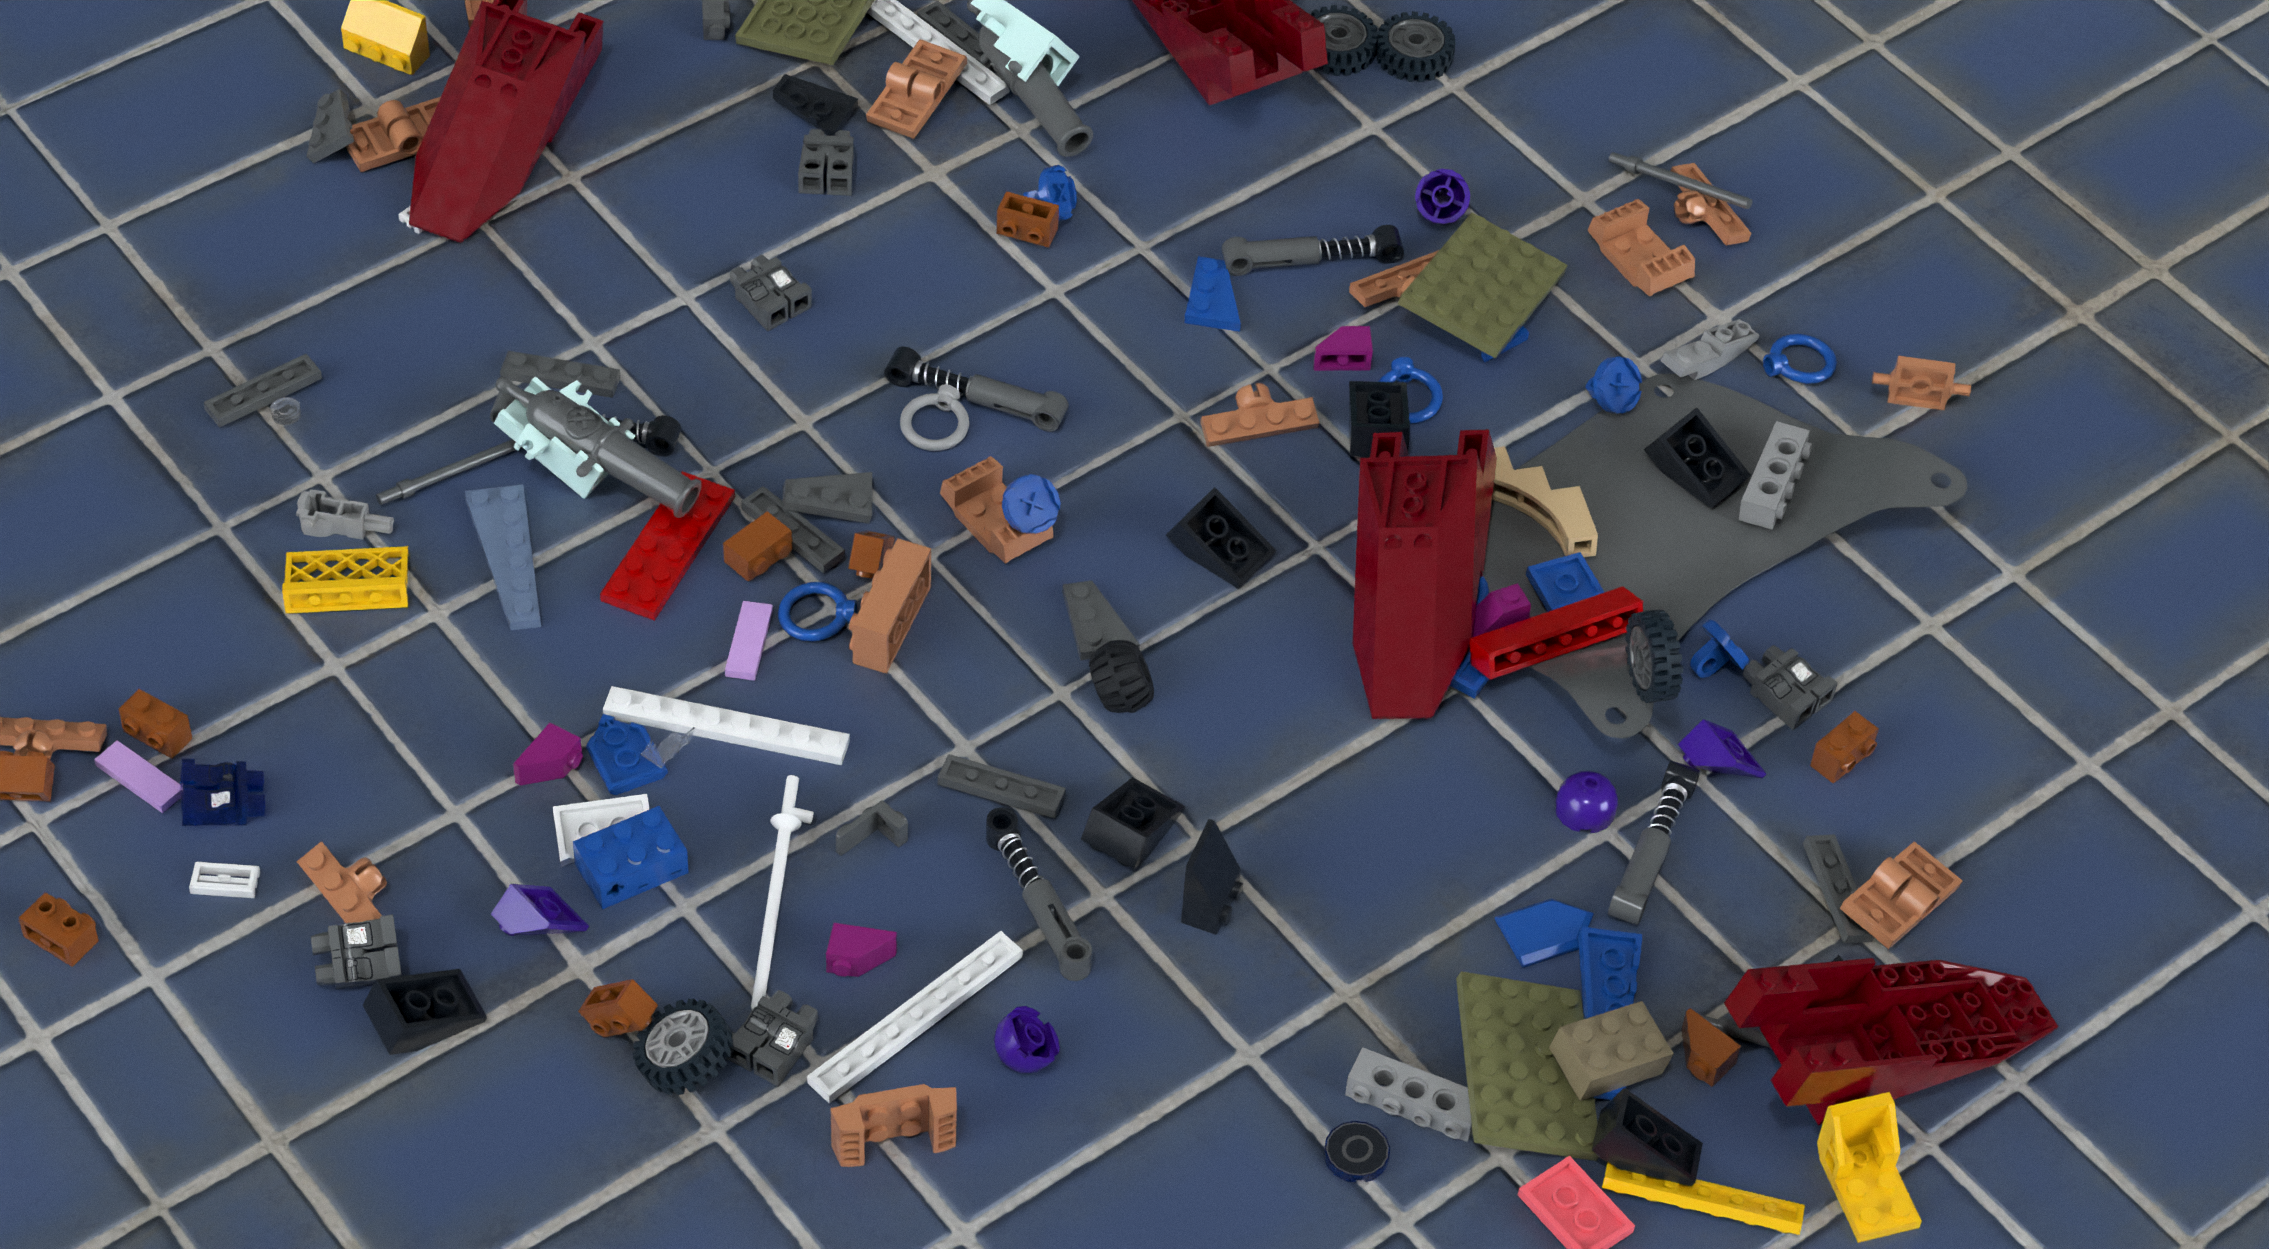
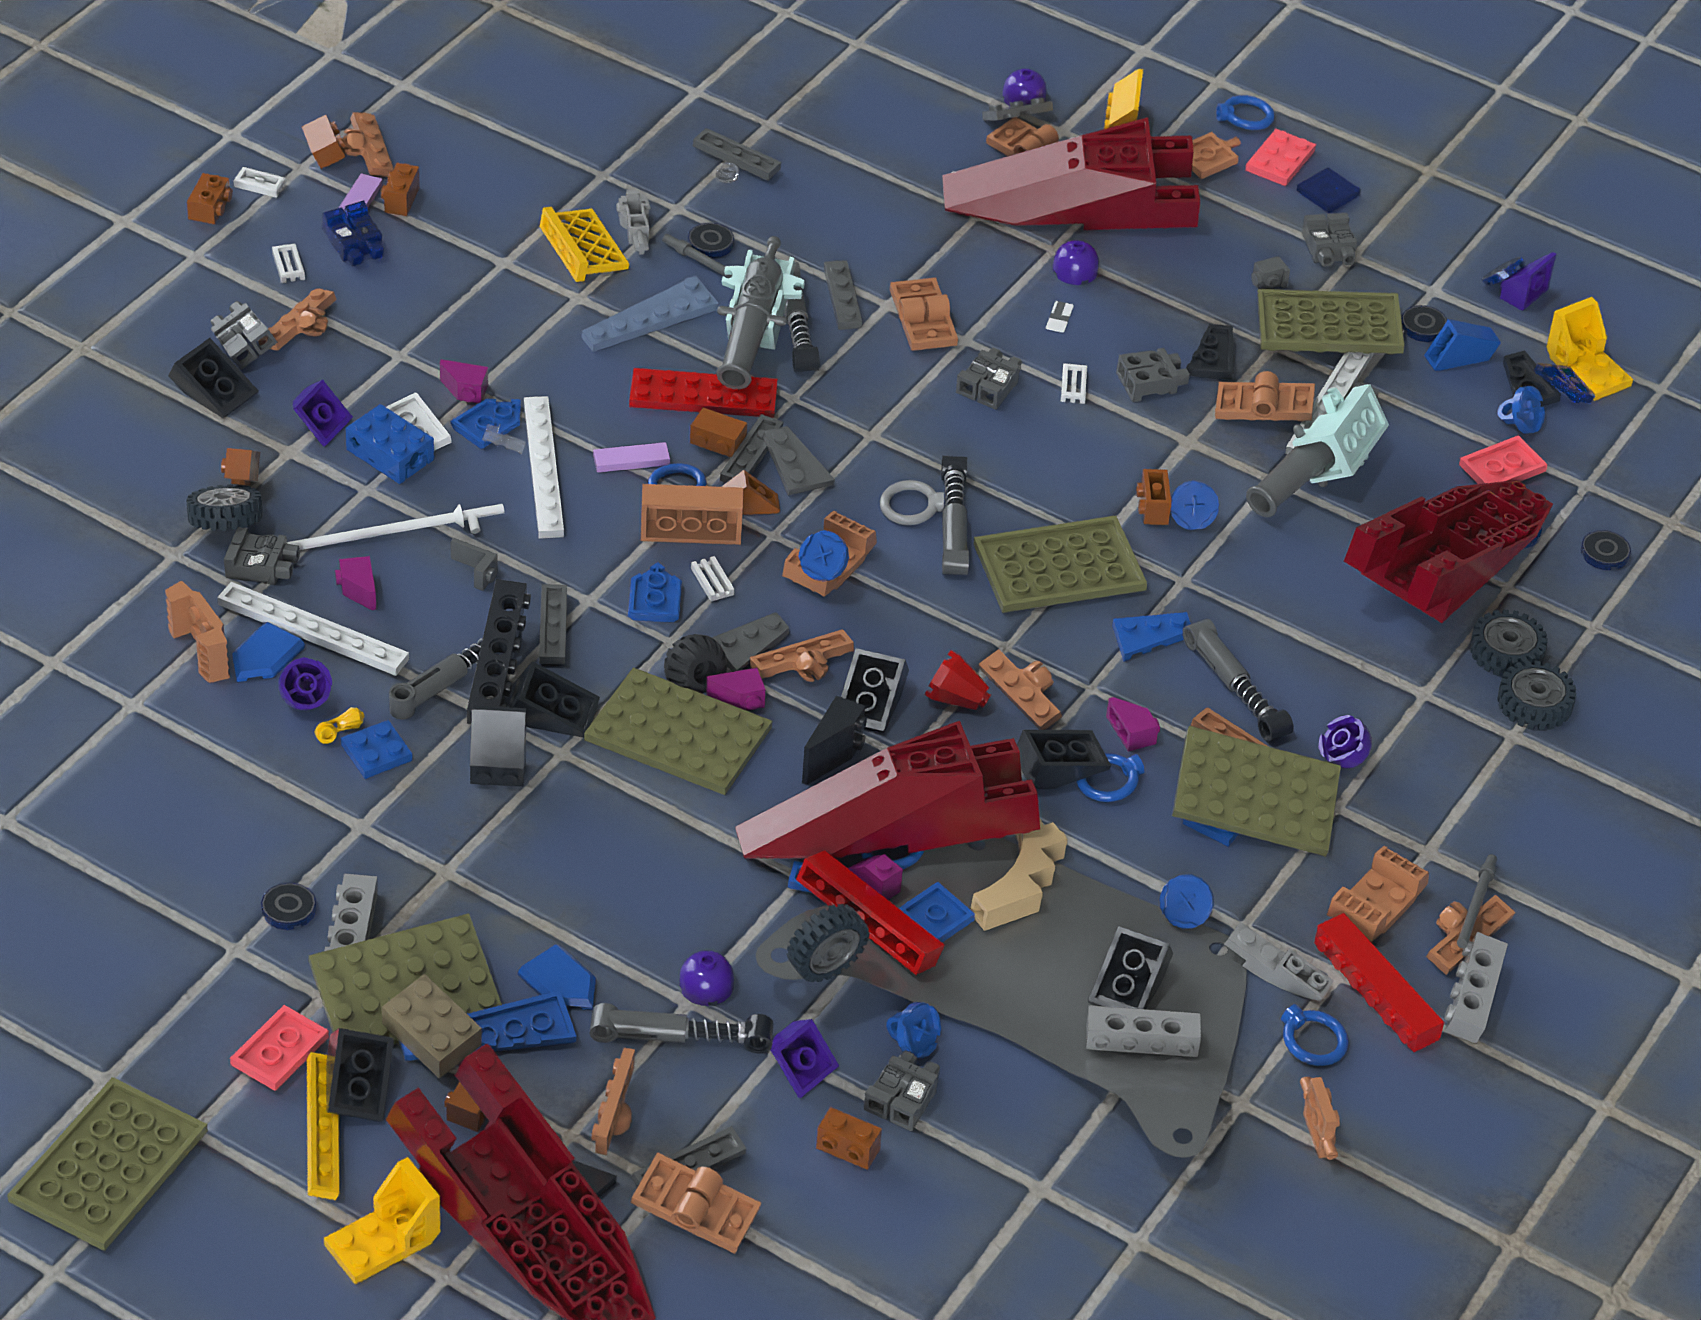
camera: 70 degrees right, 5 degrees down
(48, 872) = (259, 182): none -> white tile
(291, 108) = (1024, 86): none -> dark purple cylinder
(402, 459) = (711, 239): none -> tile
(613, 163) = (1076, 262): none -> dark purple cylinder
(634, 312) = (924, 313): none -> nougat plate
(686, 208) = (1059, 316): none -> white sticker
(801, 233) = (1073, 394): none -> white tile
(932, 1064) = (265, 652): none -> blue tile
(980, 622) = (713, 563): none -> white tile
(987, 682) = (655, 596): none -> blue tile
(1037, 841) = (505, 596): none -> black brick
(1085, 330) = (1059, 564): none -> olive plate
(1096, 1043) = (351, 719): none -> yellow piece
(1135, 1006) = (376, 749): none -> blue plate
(1144, 580) = (804, 657): none -> nougat plate
(1176, 649) = (738, 688): none -> magenta slope
(1208, 724) = (678, 731): none -> olive plate
(1239, 466) = (958, 684): none -> red cone
(1292, 588) = (834, 739): none -> black slope
(1751, 288) = (1379, 982): none -> red brick
(1762, 922) = (615, 1114): none -> nougat plate
(1787, 221) = (1475, 988): none -> light grey brick

